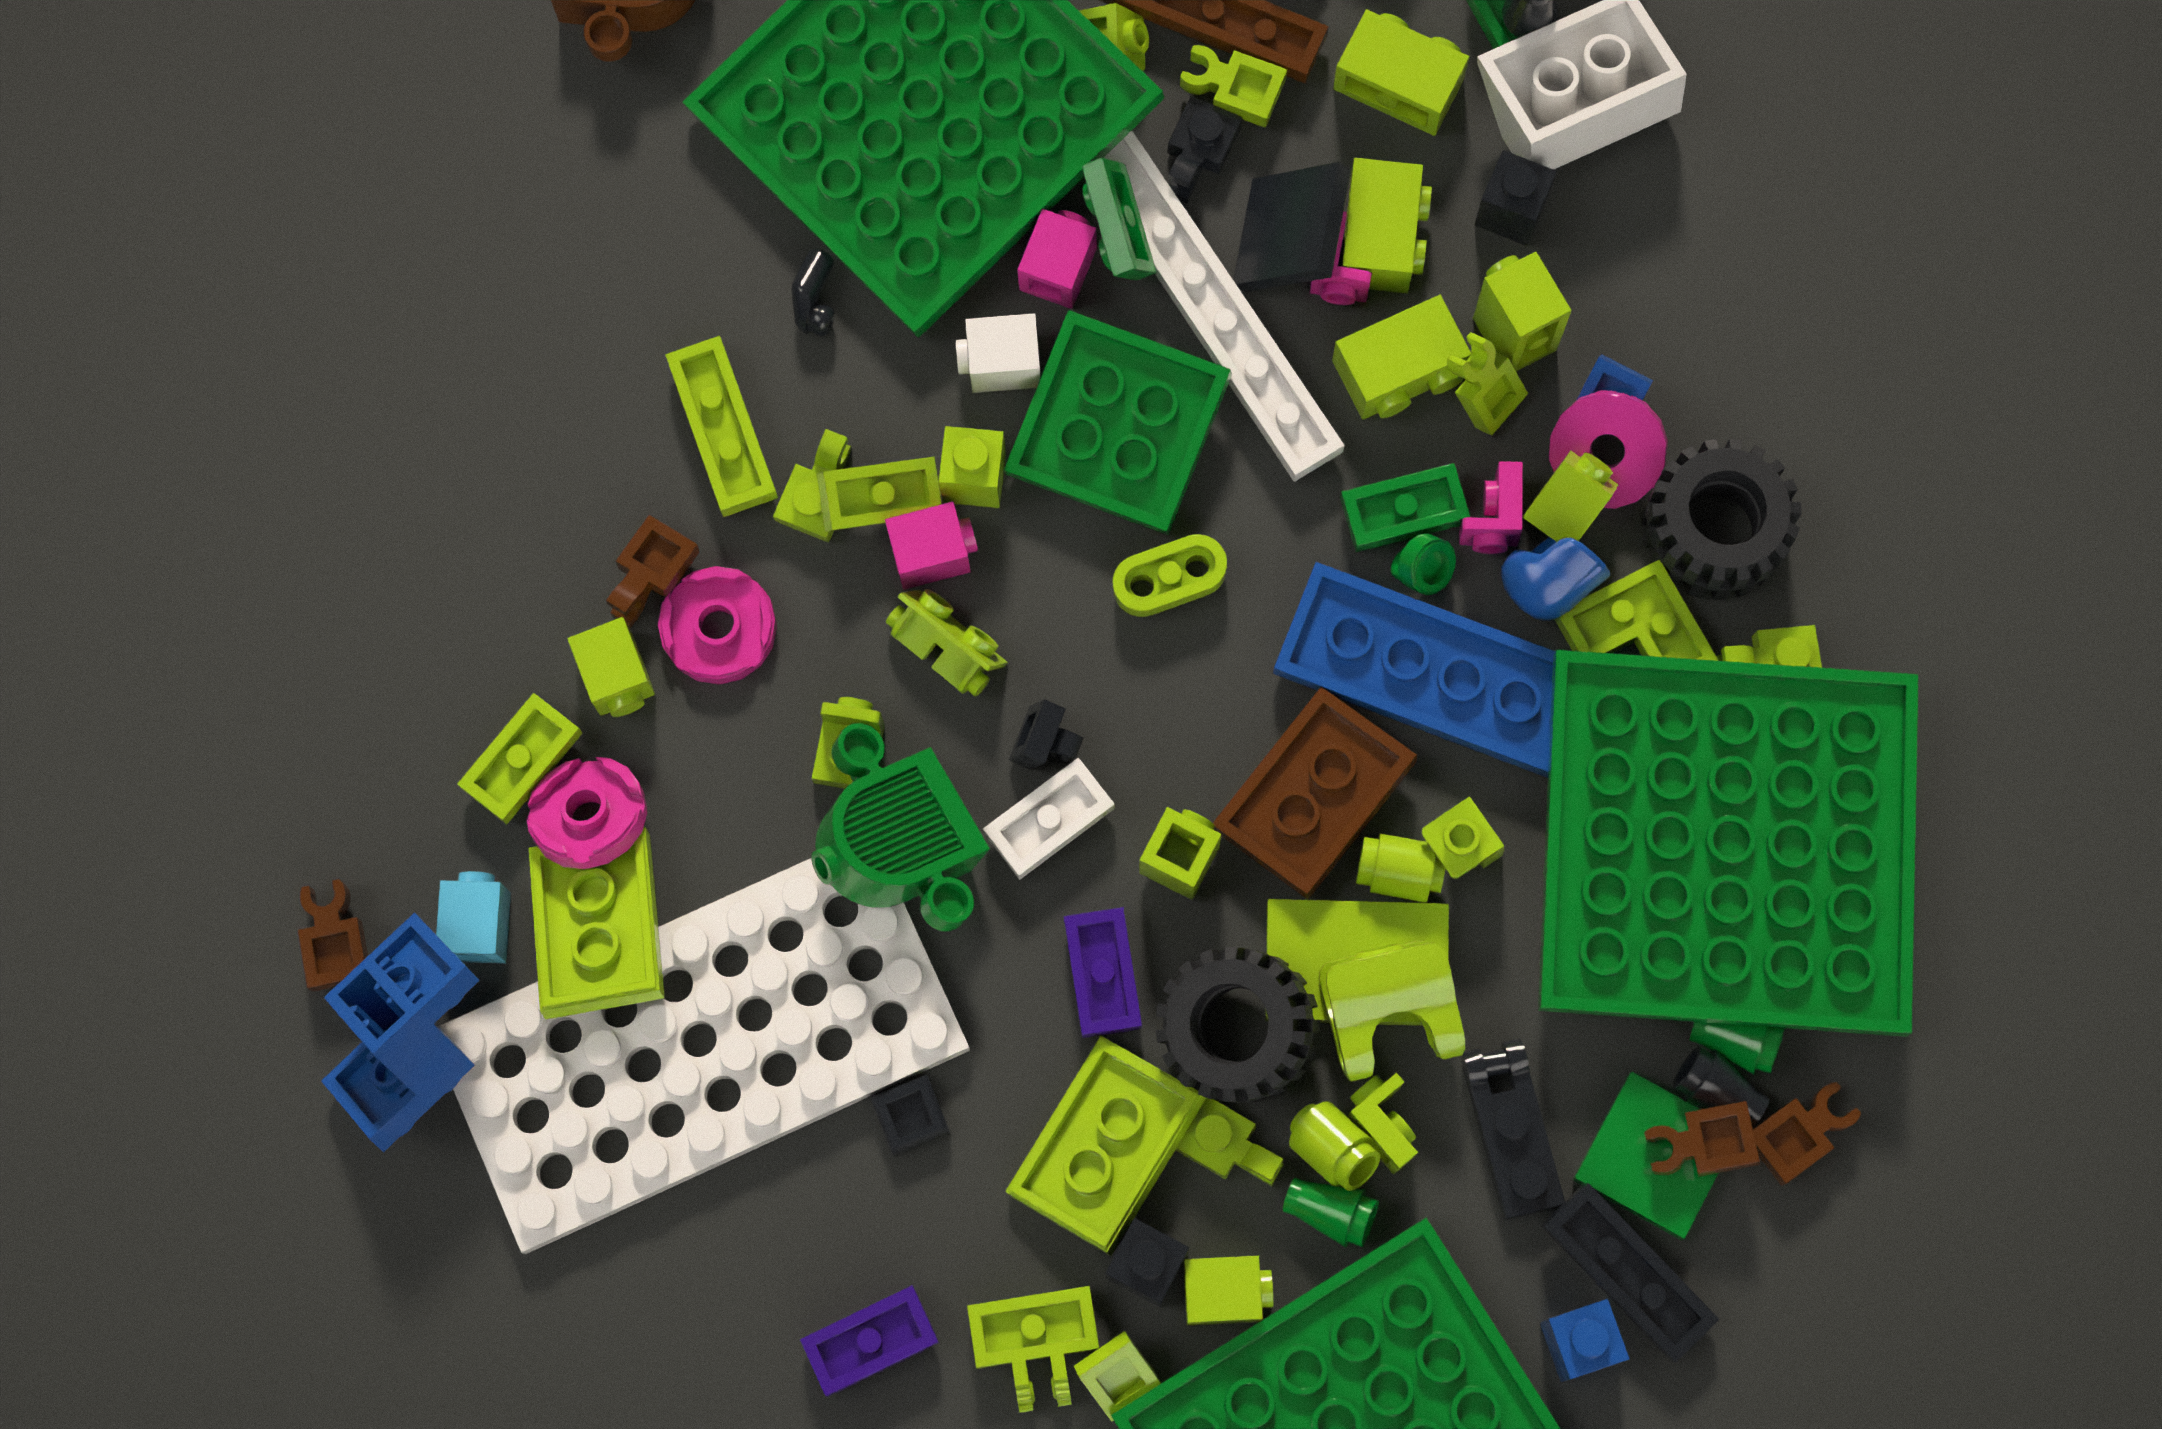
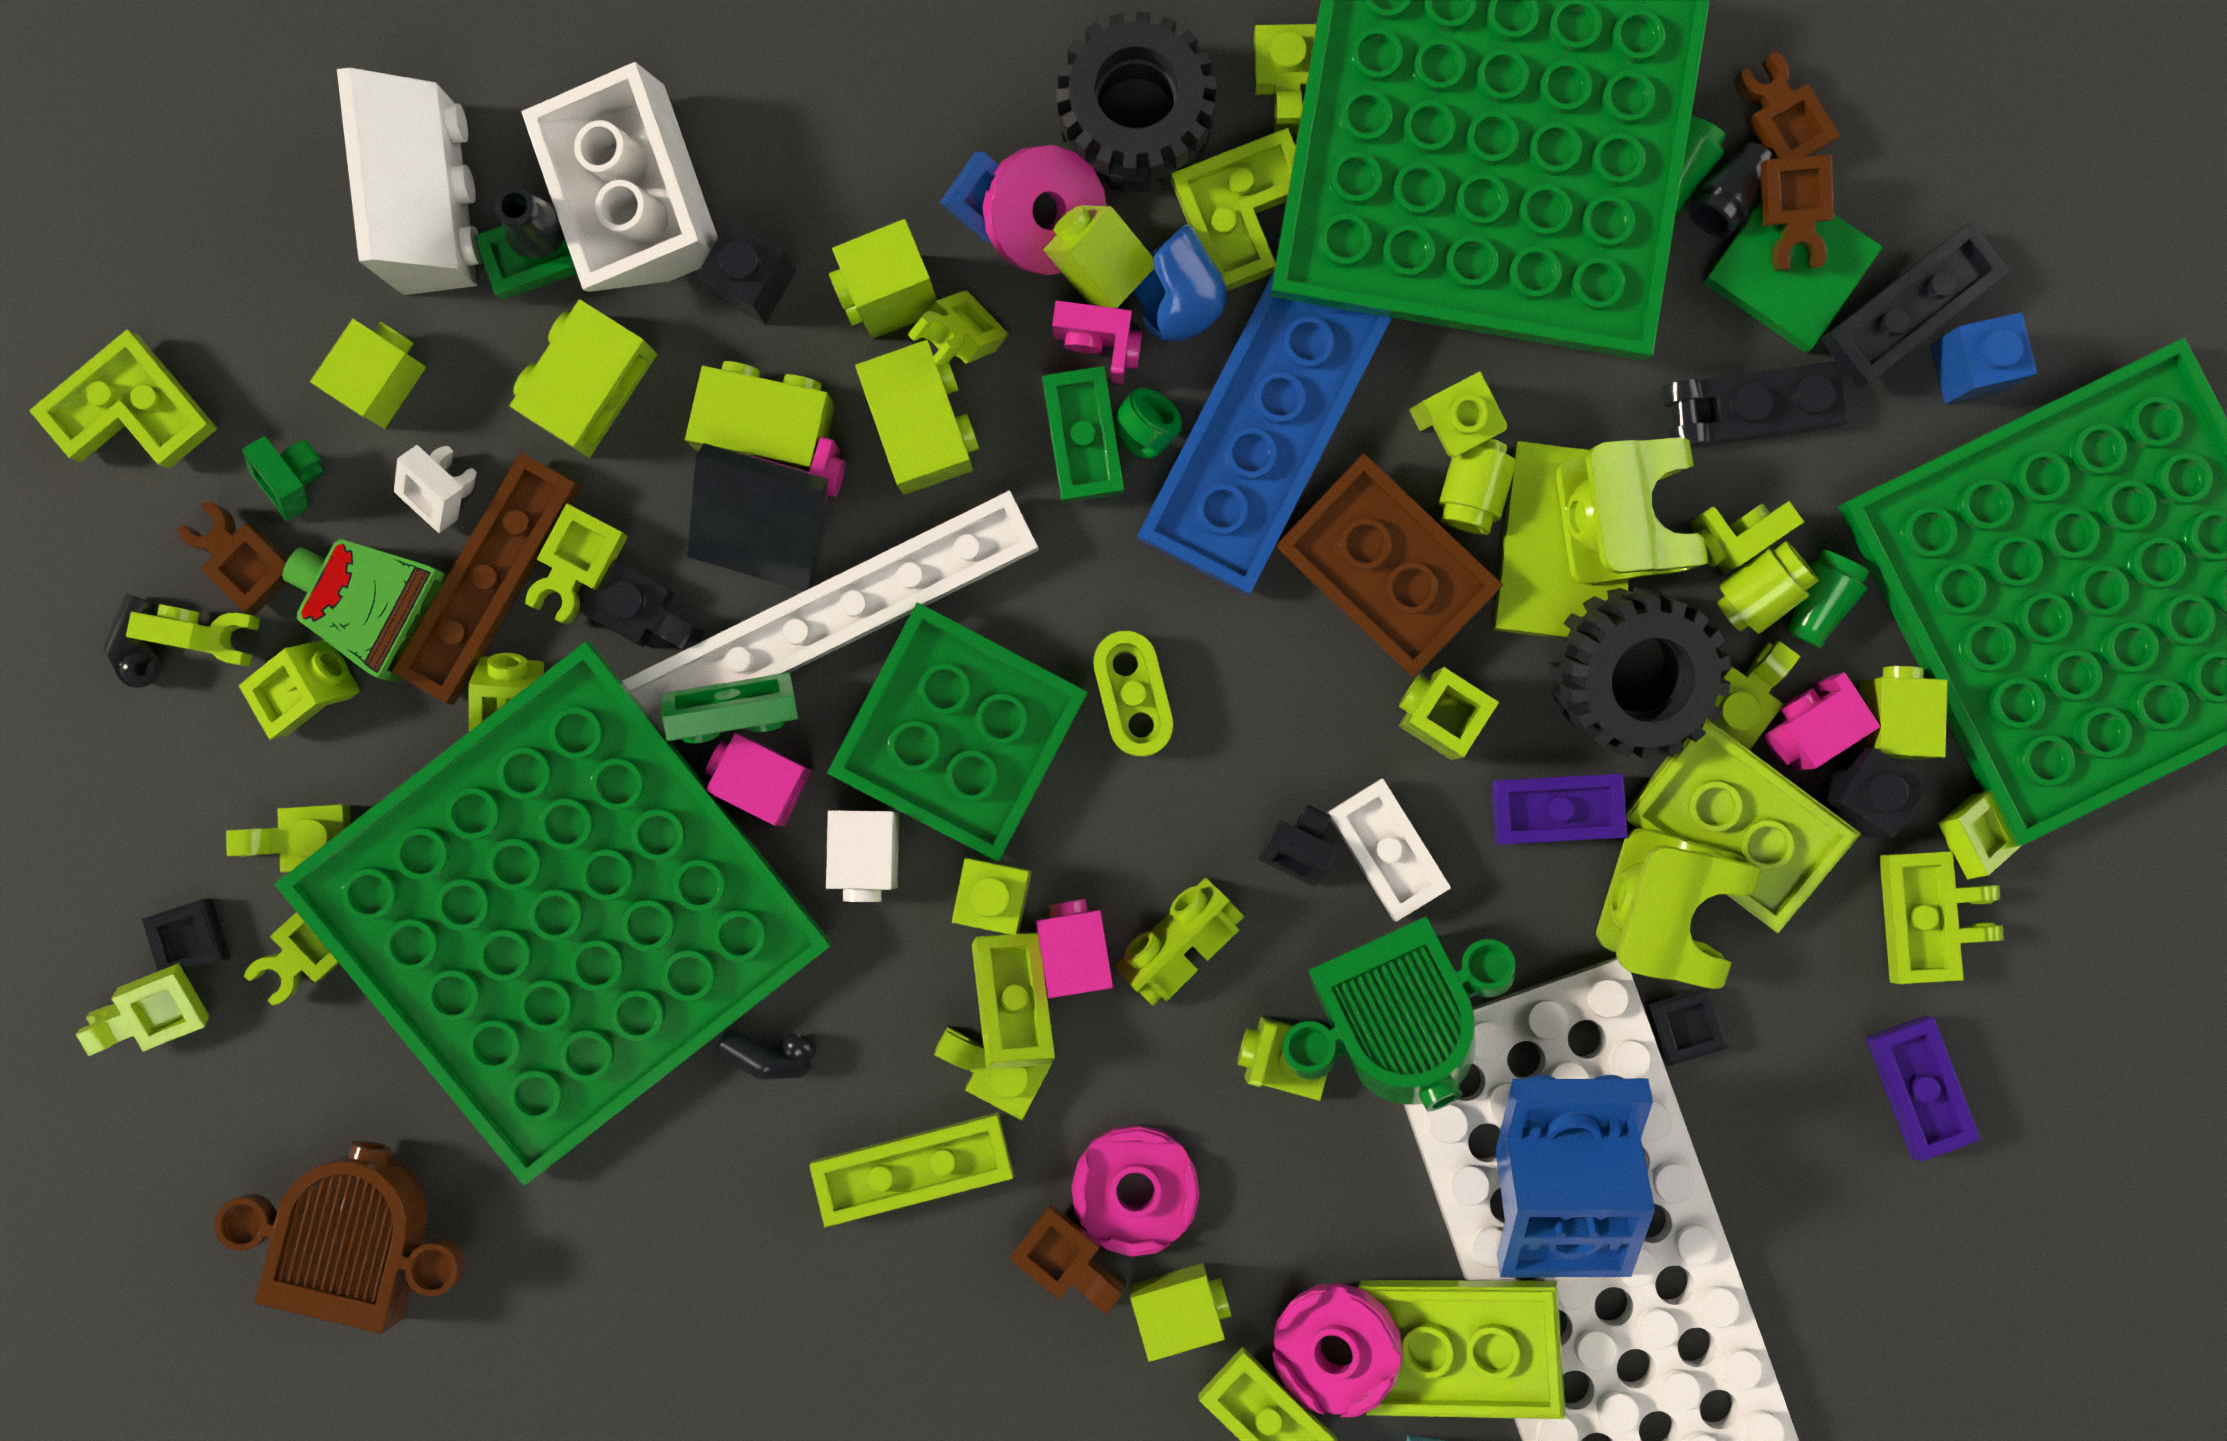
camera: 85 degrees left, 10 degrees up
(761, 990) = (1574, 1177): none -> blue bracket
(1025, 1056) = (1653, 901): none -> lime piece
(1207, 1209) = (1820, 724): none -> dark pink brick

